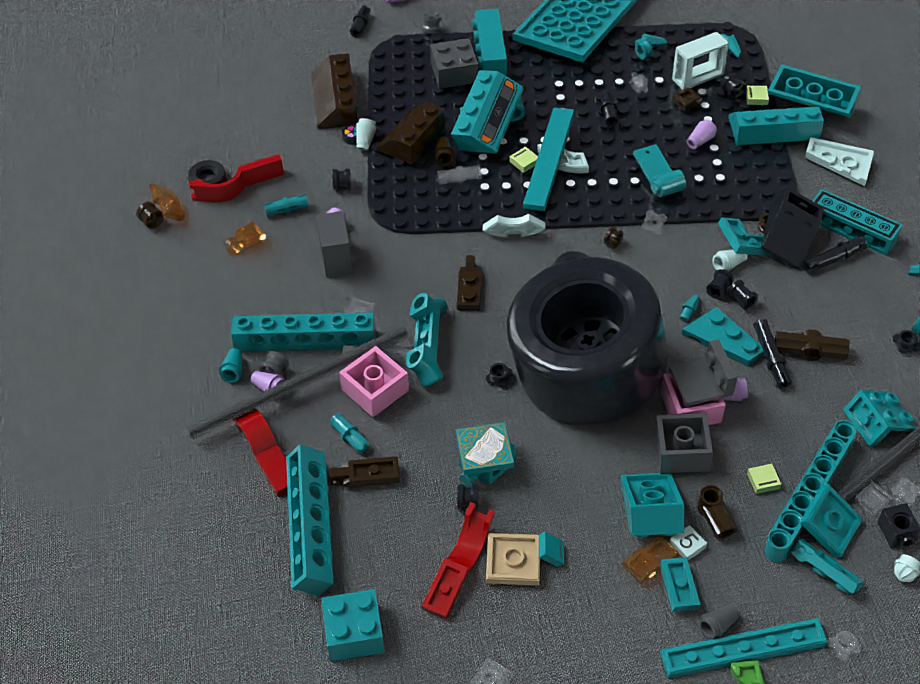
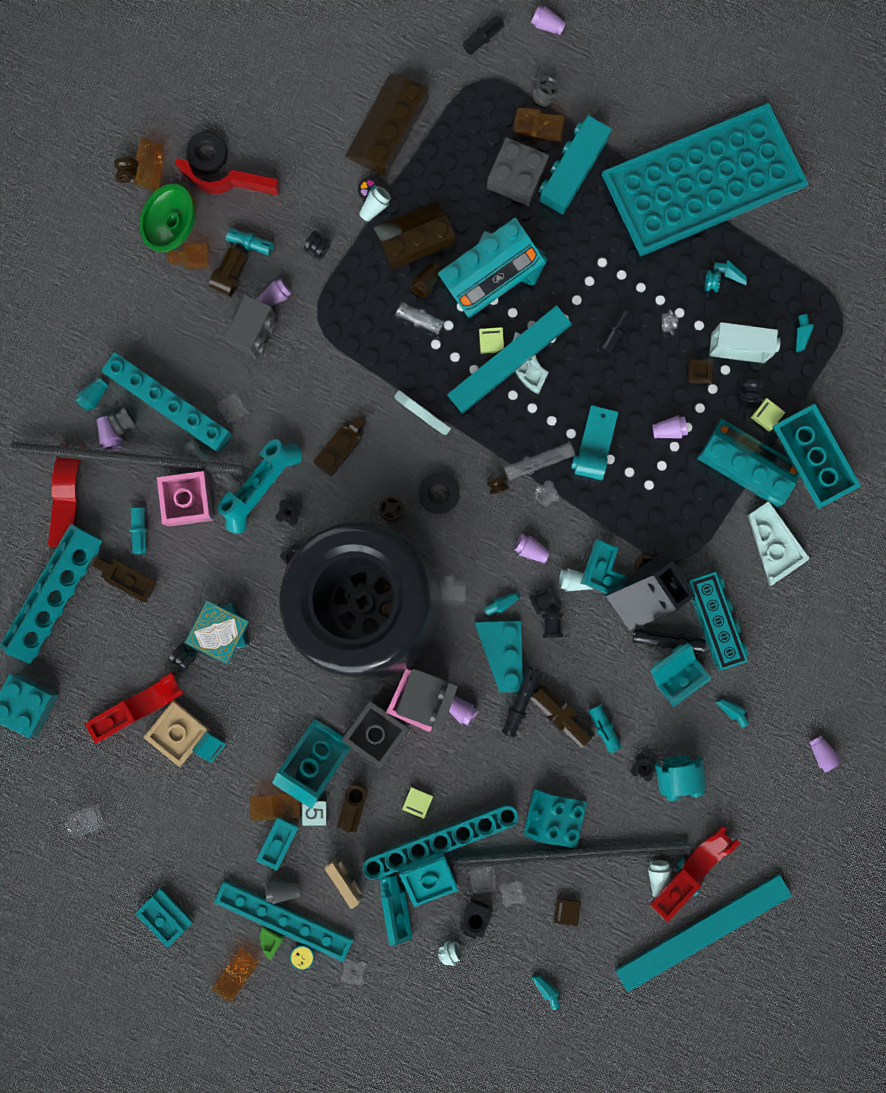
camera: 40 degrees right, 35 degrees up
(209, 219) = (167, 218): none -> green dish
(284, 232) = (226, 277): none -> dark brown piece
(436, 36) = (539, 125): none -> clear orange slope
(467, 348) = (292, 518): none -> black plate
(618, 217) = (531, 464): none -> clear pin
(677, 259) = (530, 548): none -> lavender cone
(766, 571) = (348, 889): none -> tan plate
(789, 665) = (302, 957): none -> light yellow tile
(851, 333) = (605, 728): none -> teal pin
(865, 269) = (679, 674): none -> teal bracket

